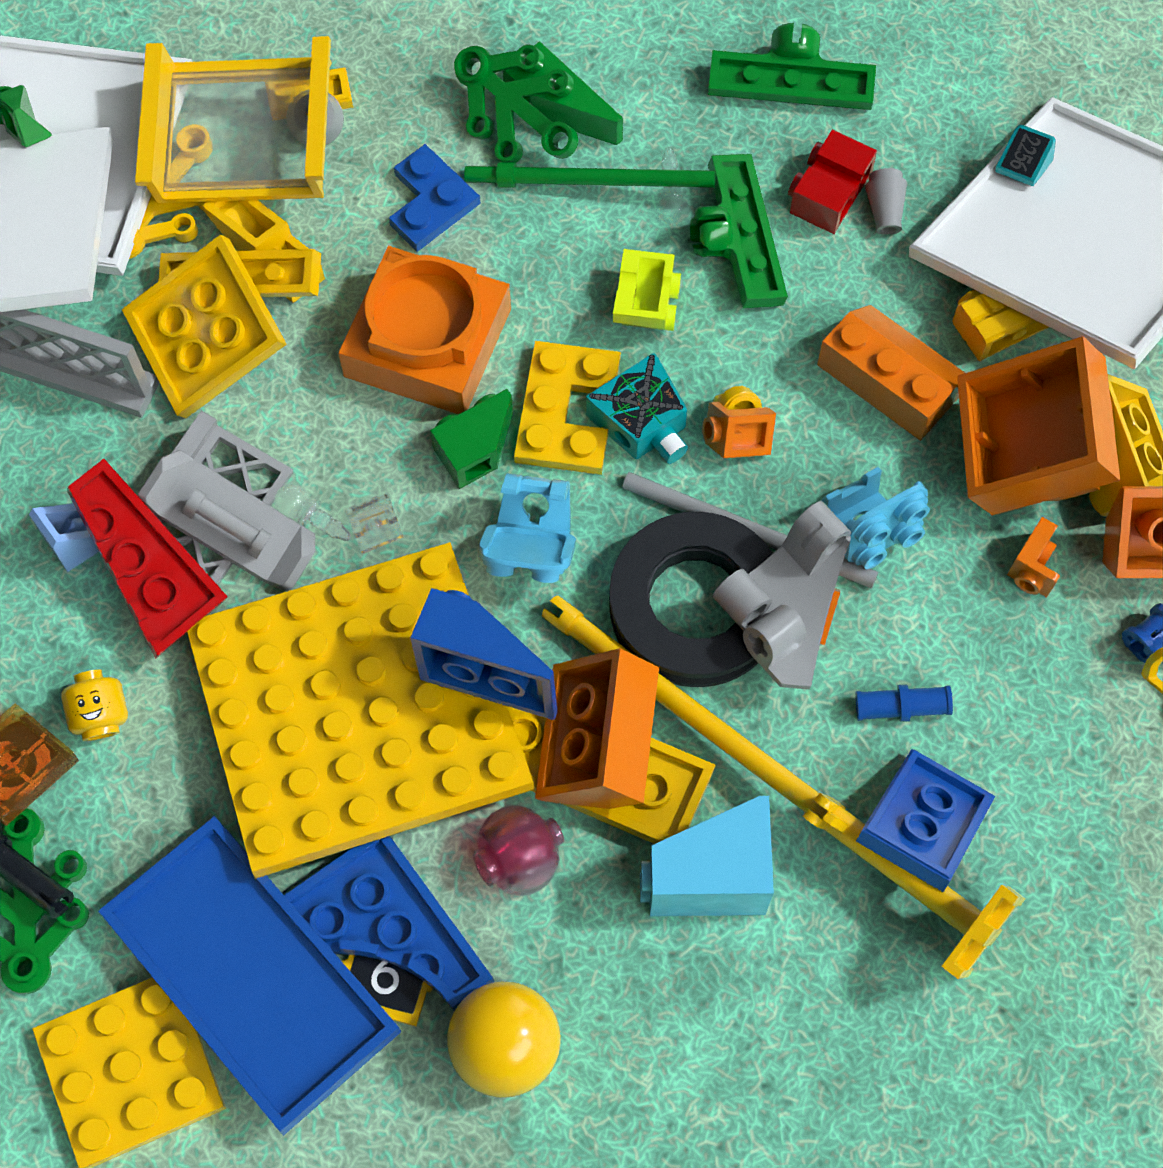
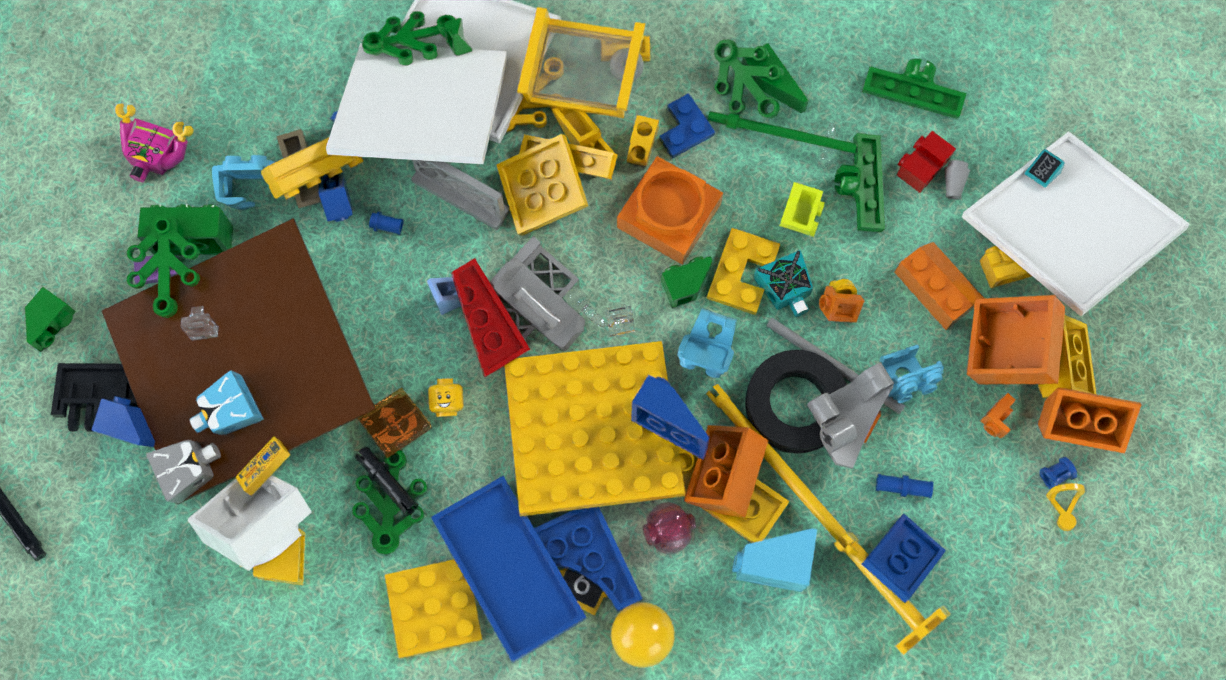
camera: 10 degrees right, 5 degrees up
(361, 229) = (642, 140): none -> yellow leg

